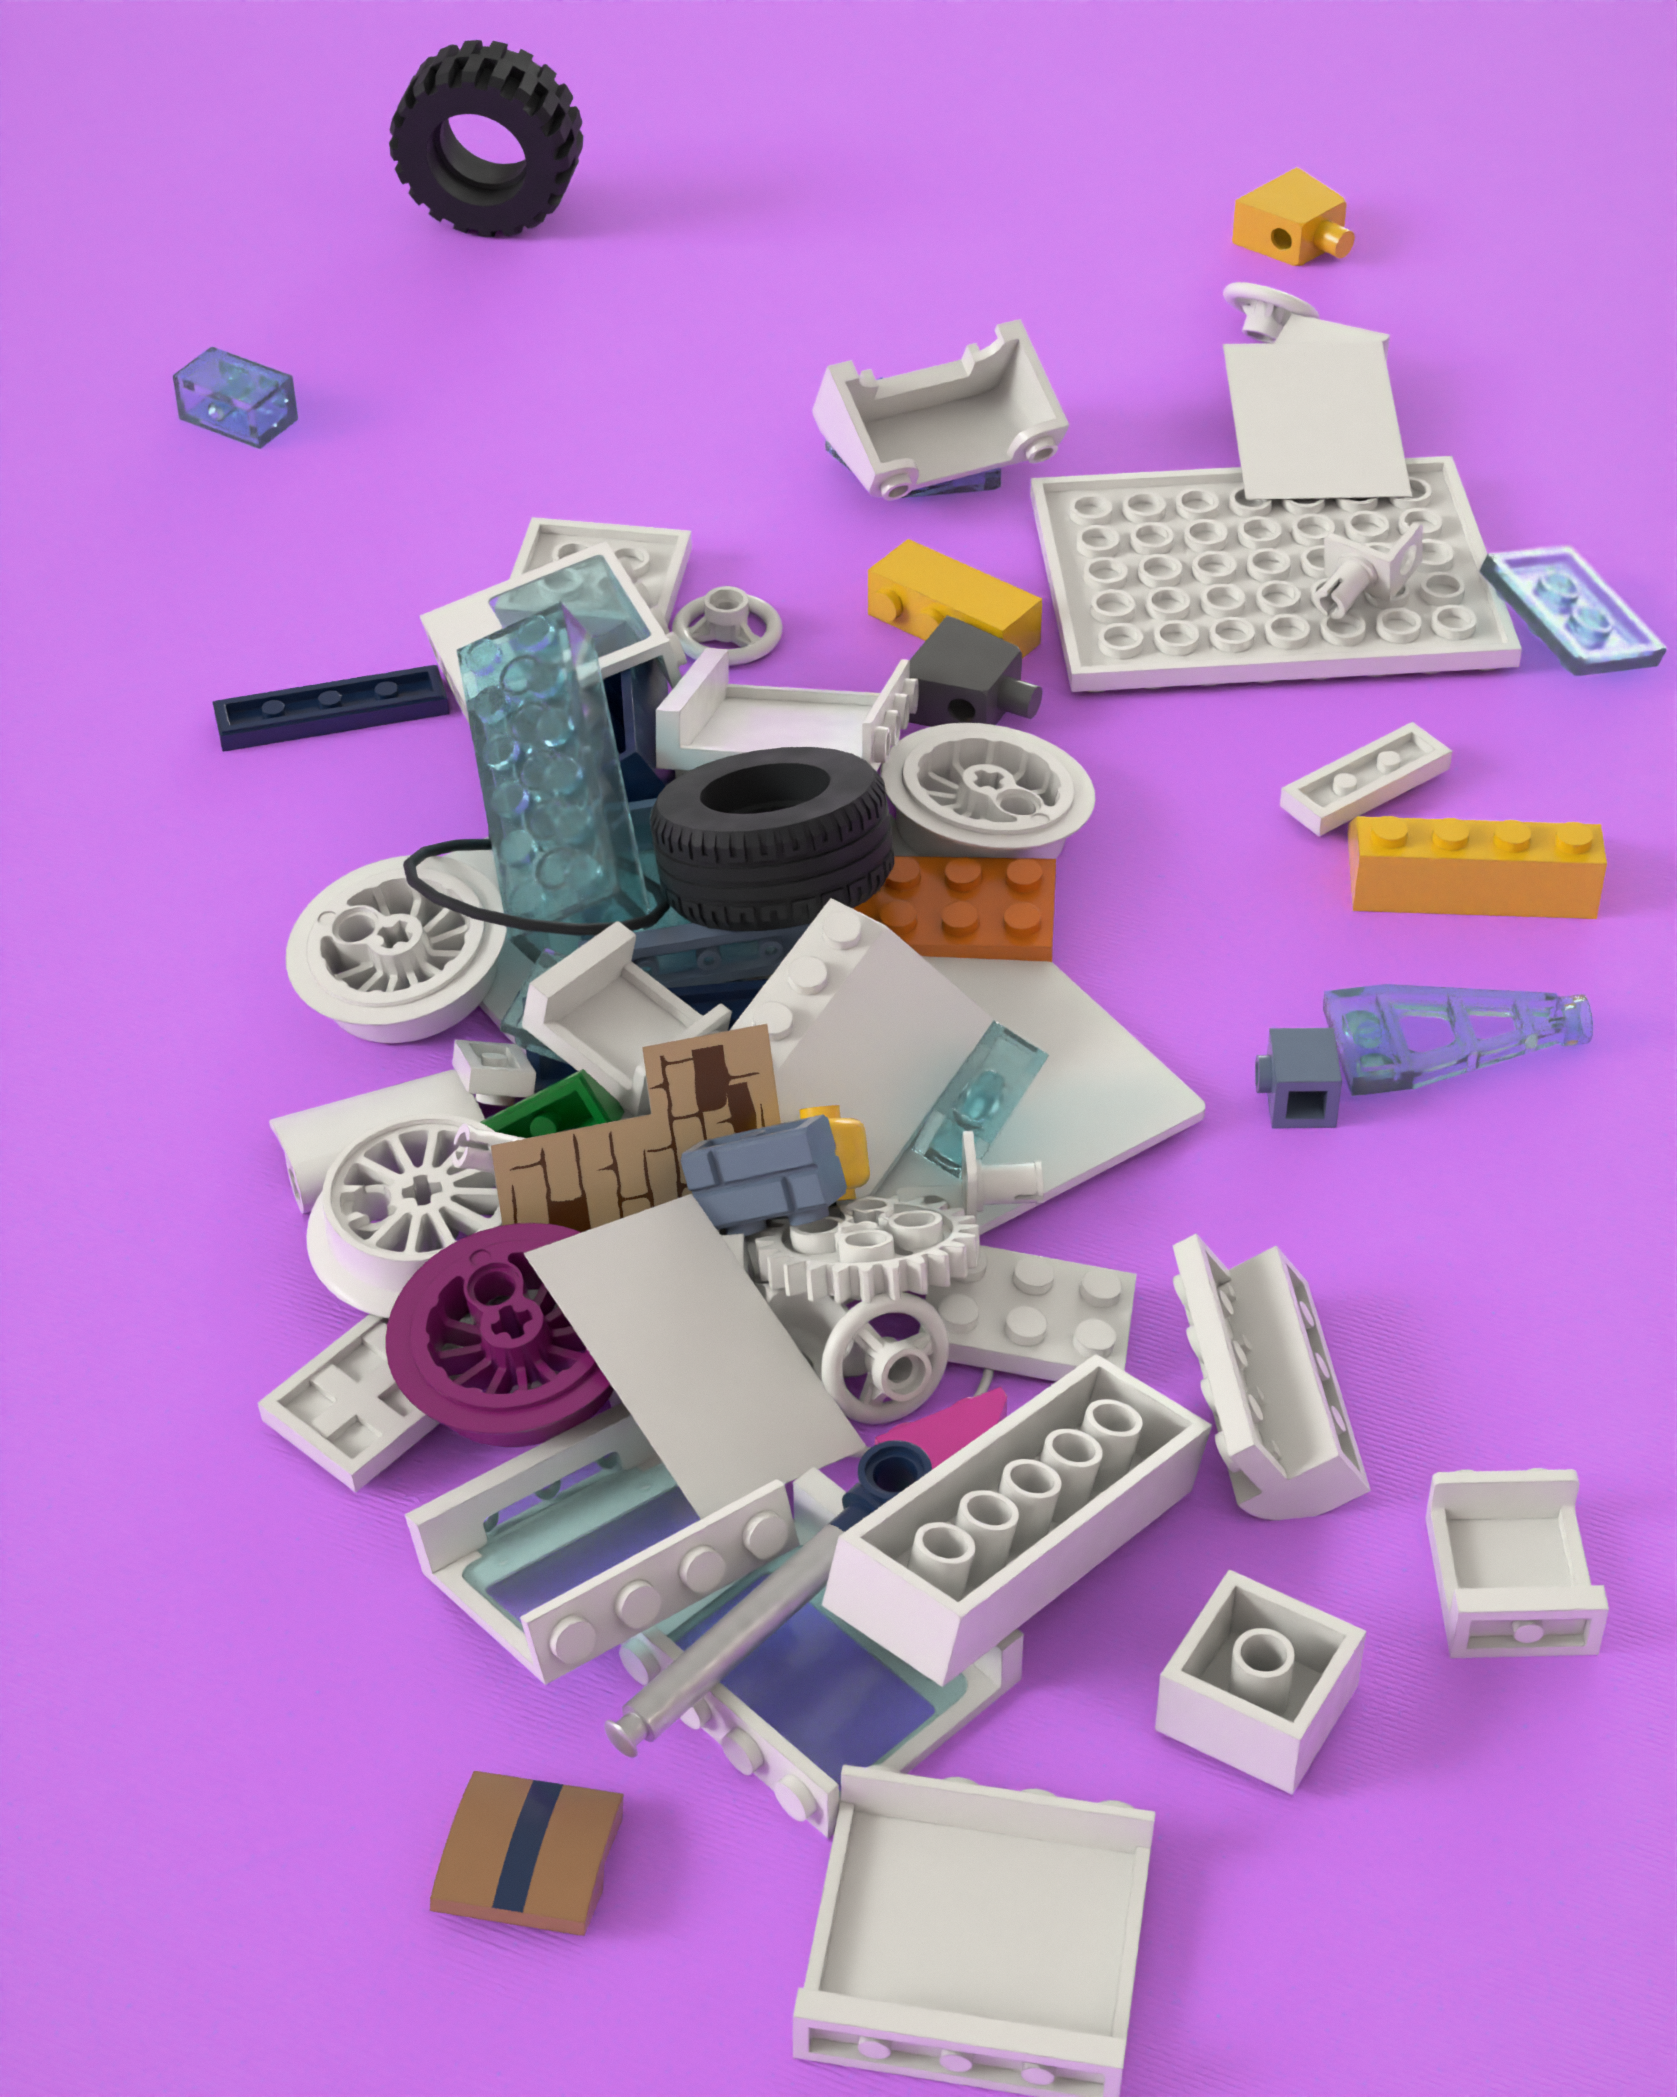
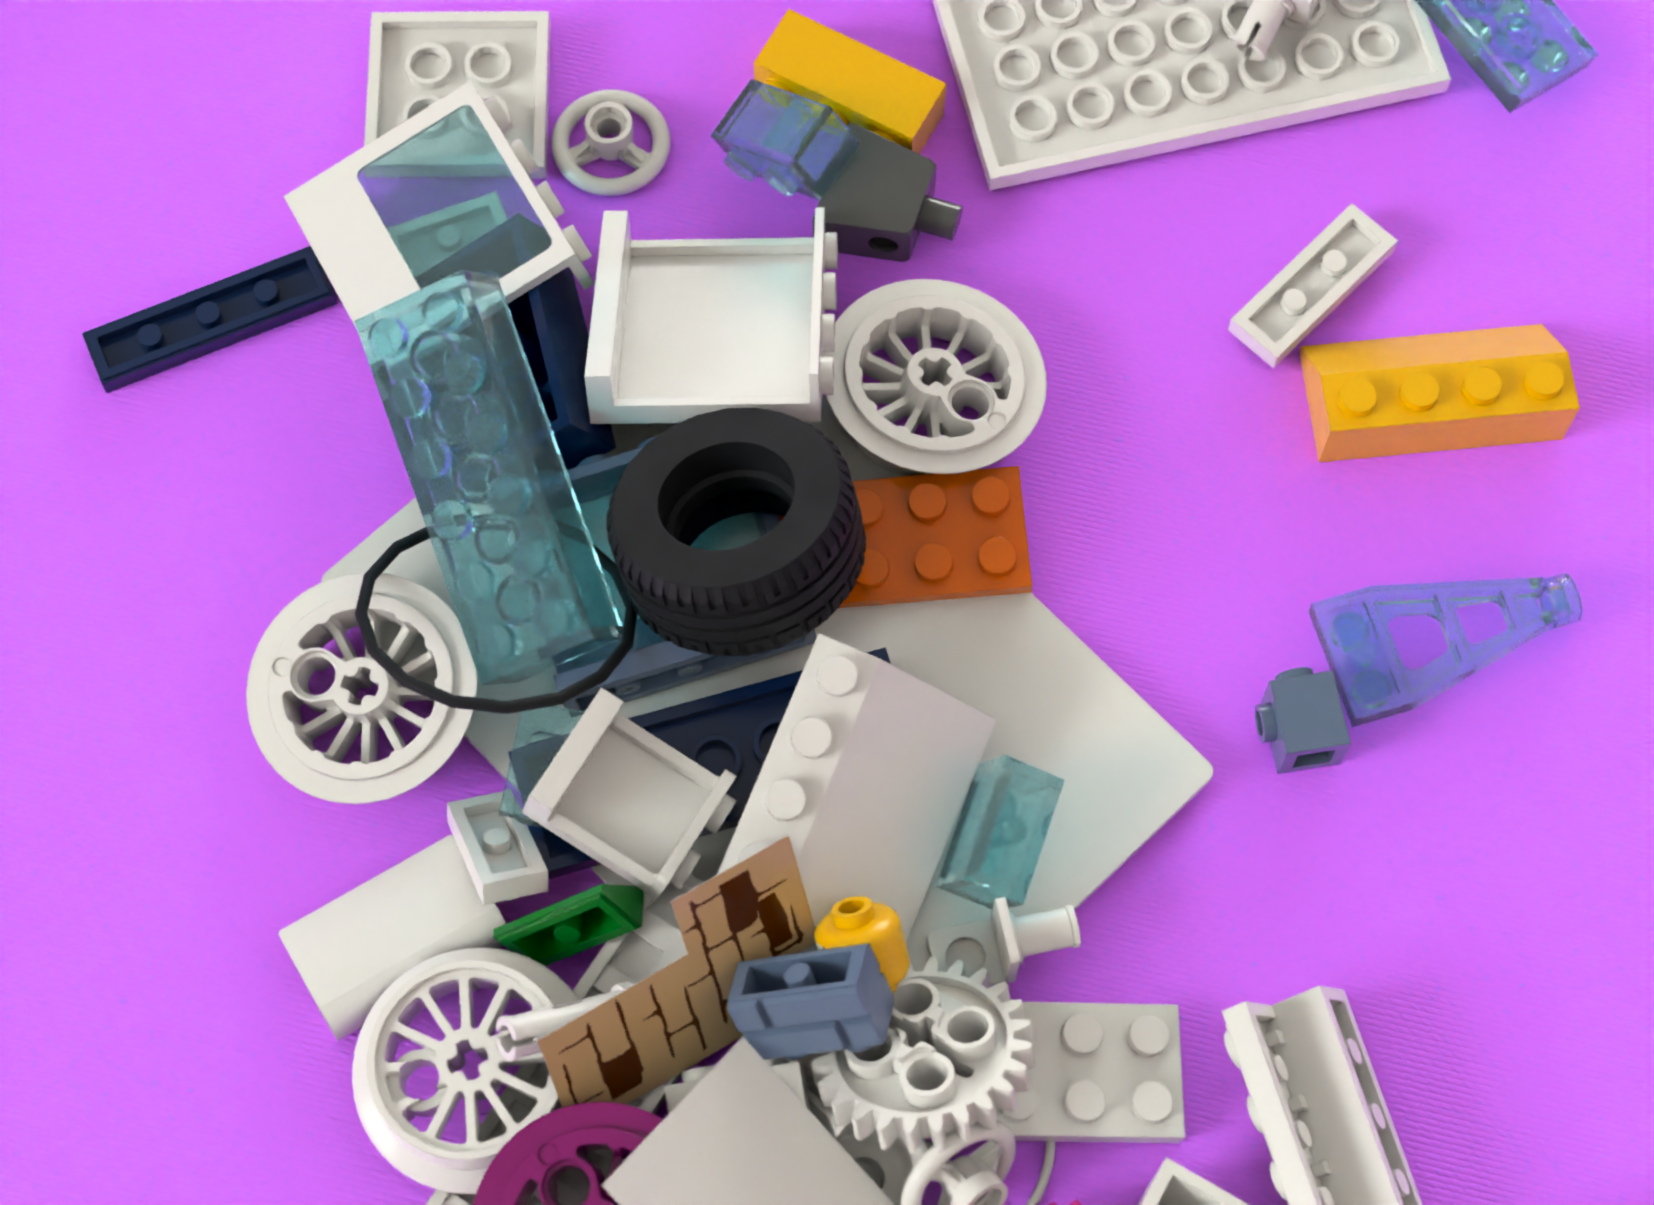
camera: 10 degrees left, 25 degrees up
(884, 619) = (784, 140): none -> clear light blue brick

